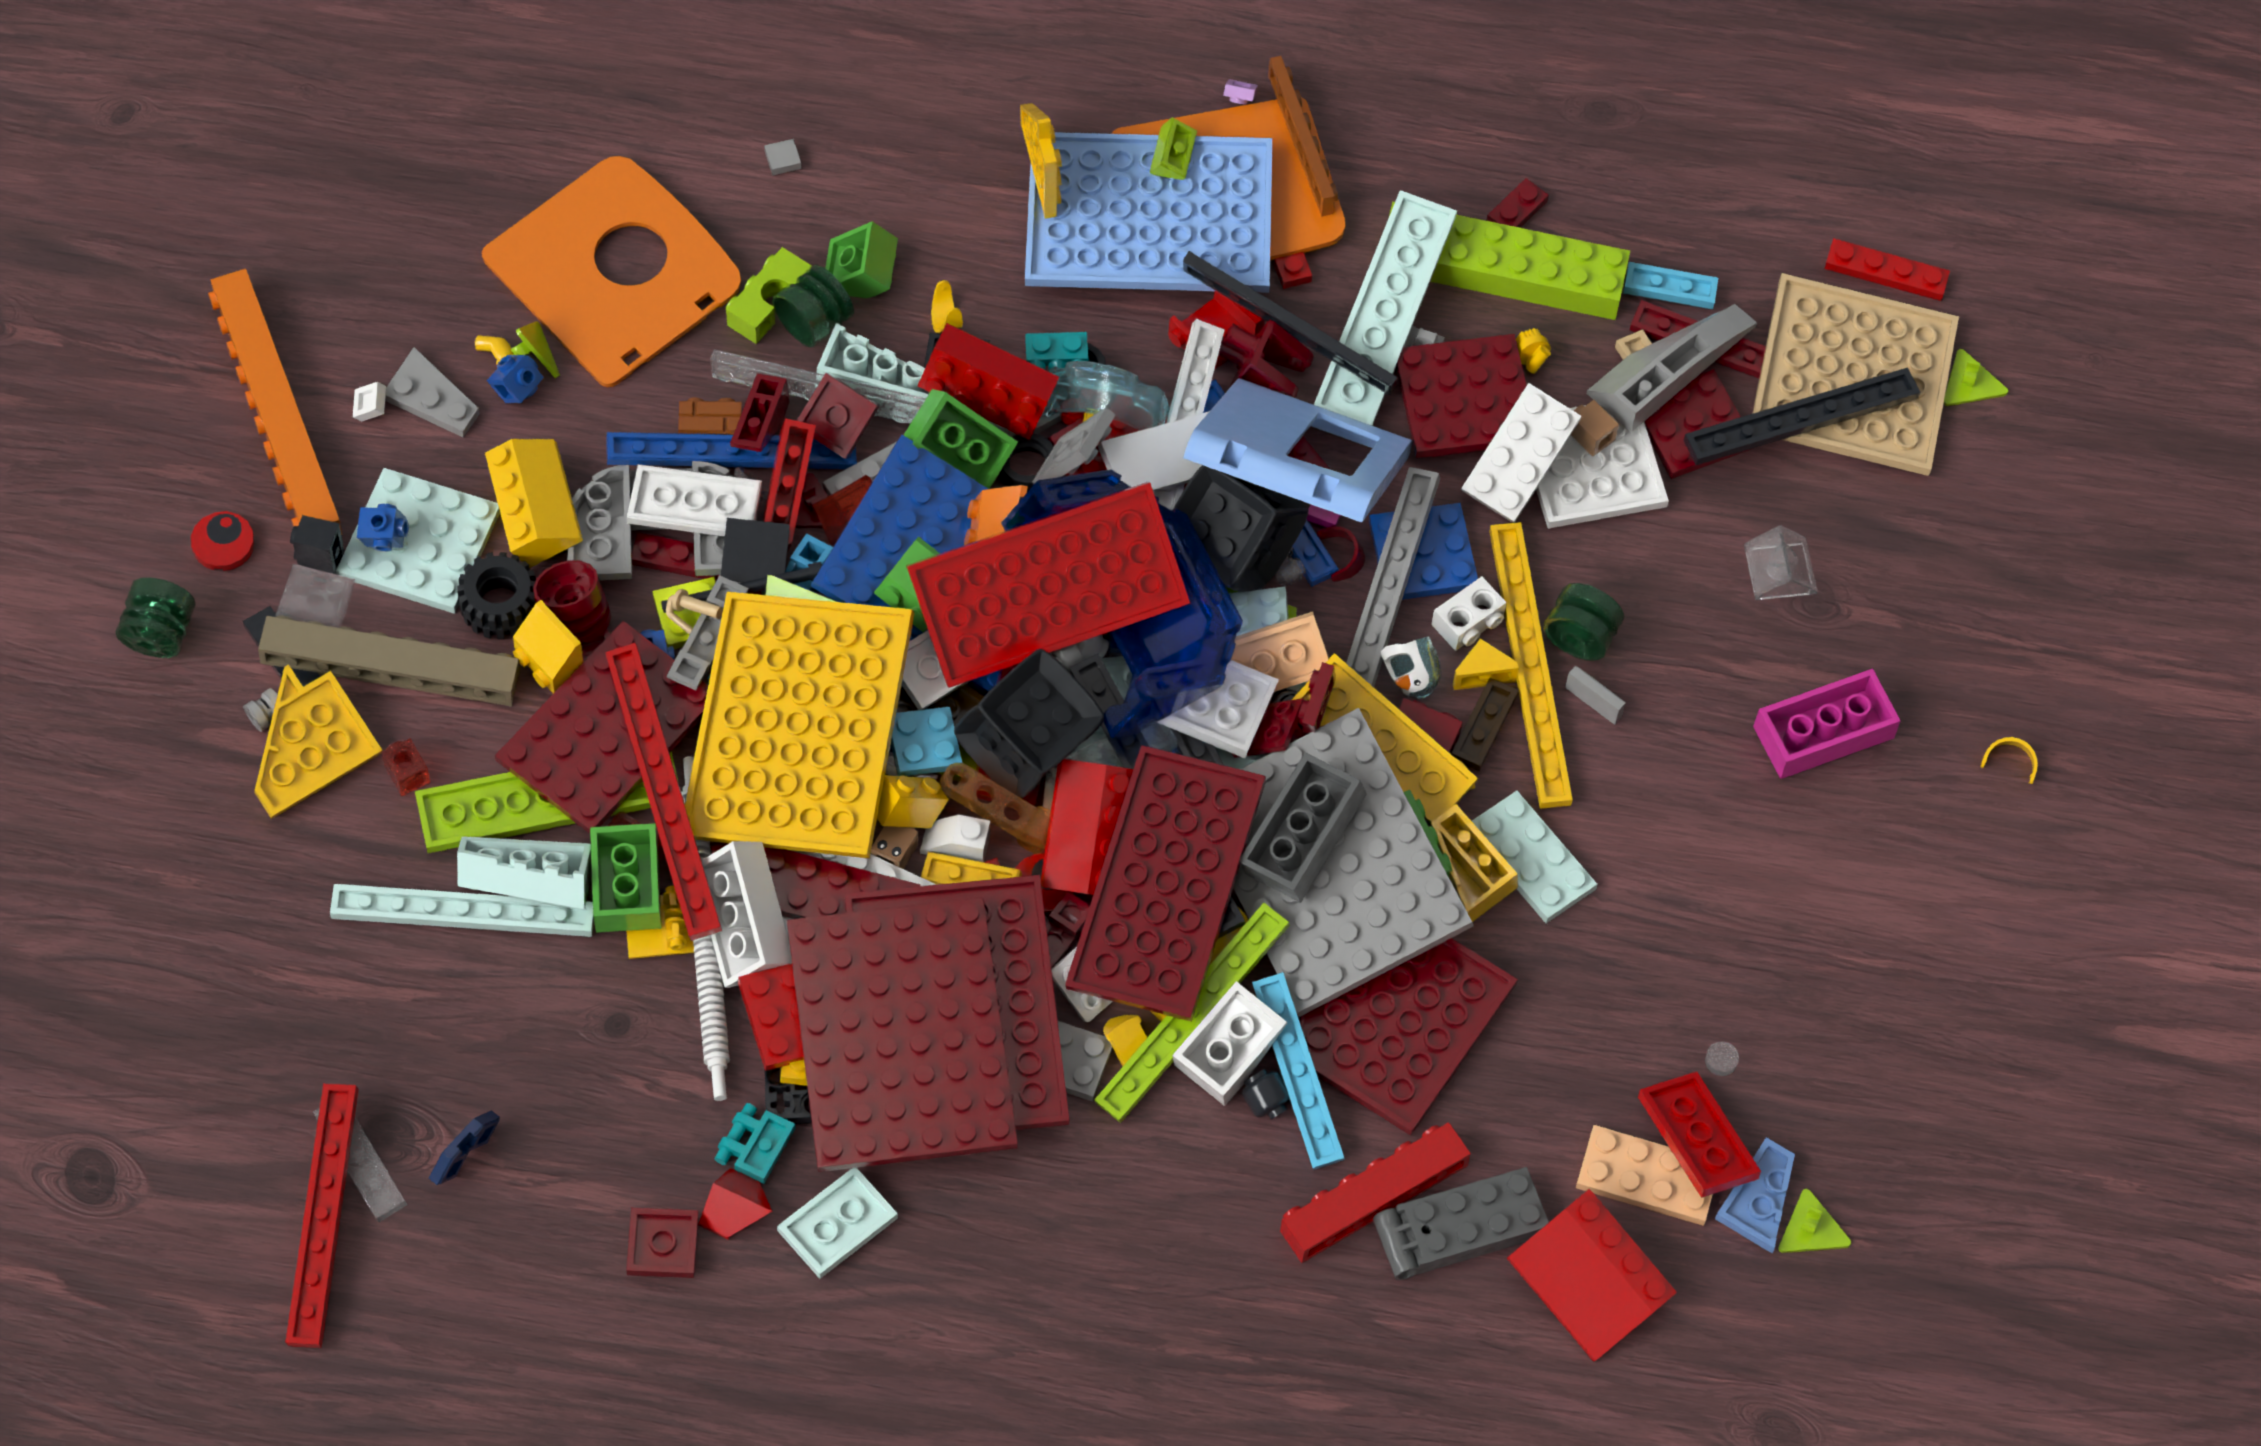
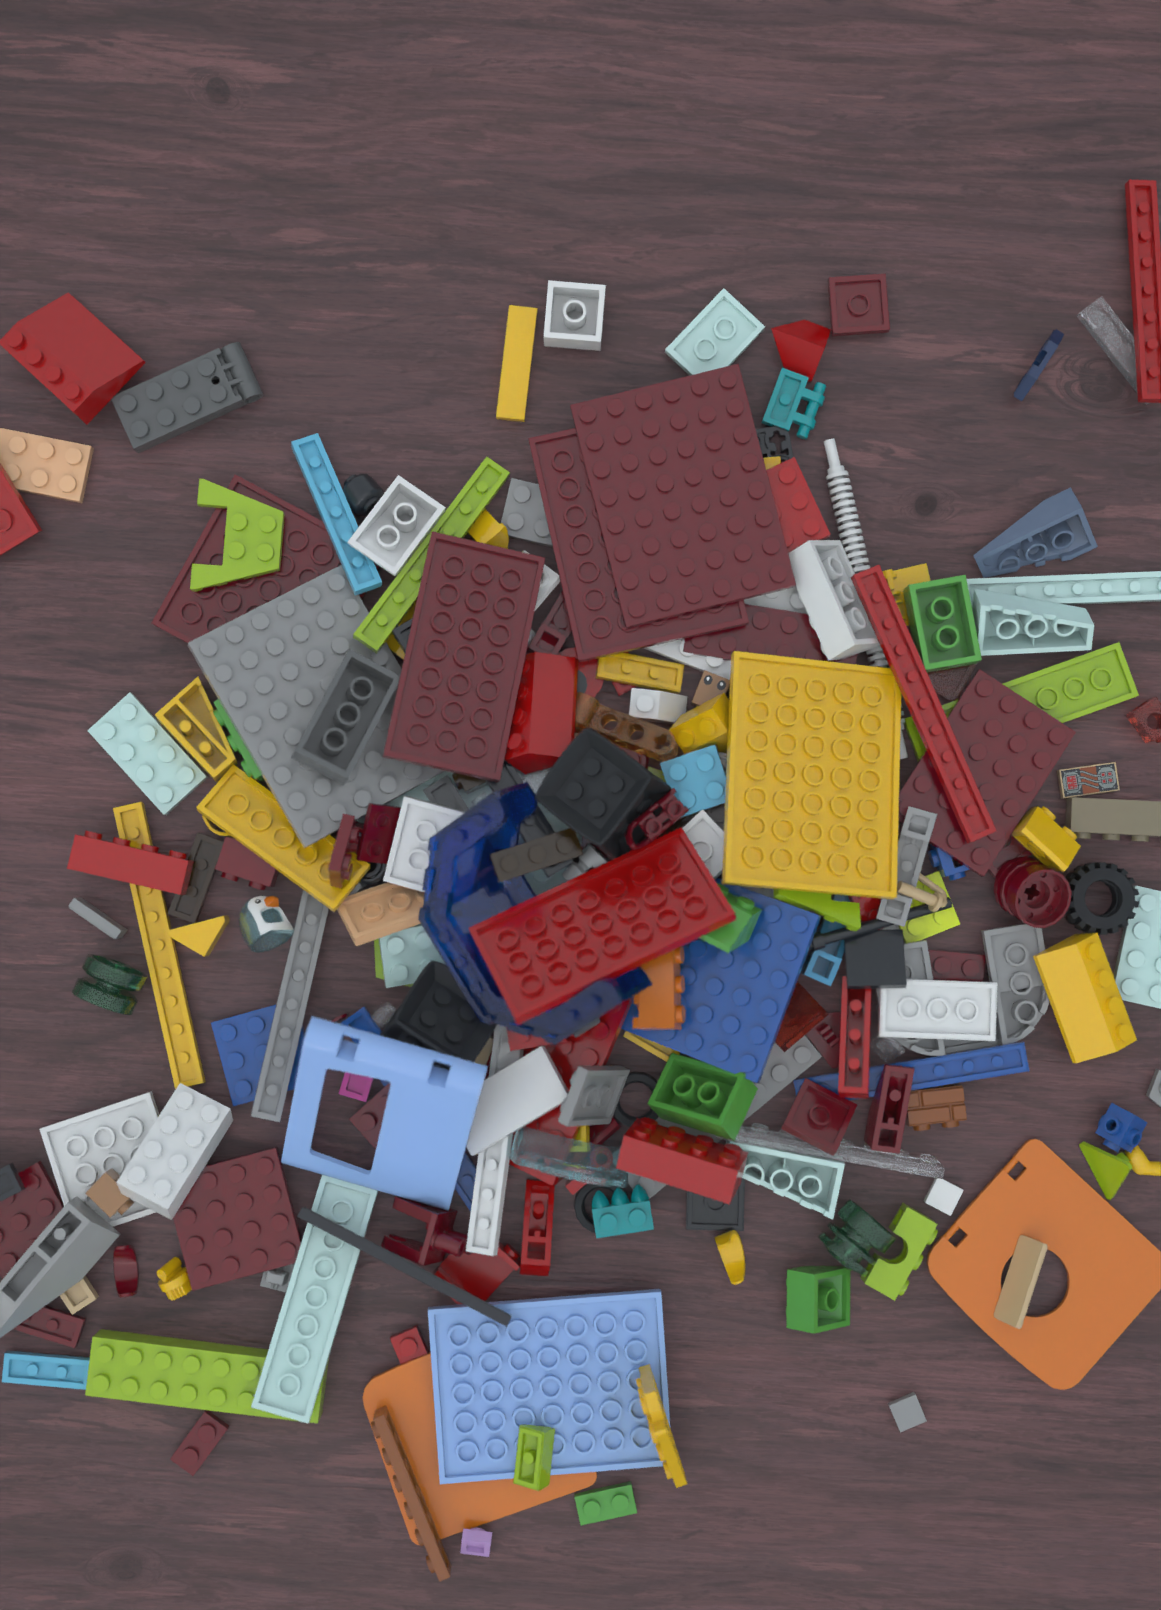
camera: 175 degrees right, 25 degrees up
(477, 977) = (1045, 533): none -> sand blue wedge
(485, 718) = (1088, 780): none -> tile
(647, 251) = (1020, 1281): none -> tan slope
(711, 339) = (943, 1195): none -> white tile
(979, 685) = (652, 825): none -> dark red piece
(999, 1257) = (574, 315): none -> white brick
(1072, 1224) = (516, 363): none -> yellow tile
(1104, 112) = (605, 1503): none -> bright green plate
(1114, 669) = (535, 854): none -> dark brown plate
(1149, 346) = (537, 1228): none -> red slope
(1381, 1187) = (263, 416): red brick -> none
(1398, 1052) = (250, 542): none -> lime wing
(1464, 609) = (221, 993): white brick -> none
(1553, 734) = (130, 864): none -> red brick
(1585, 360) = (125, 1270): none -> dark red helmet

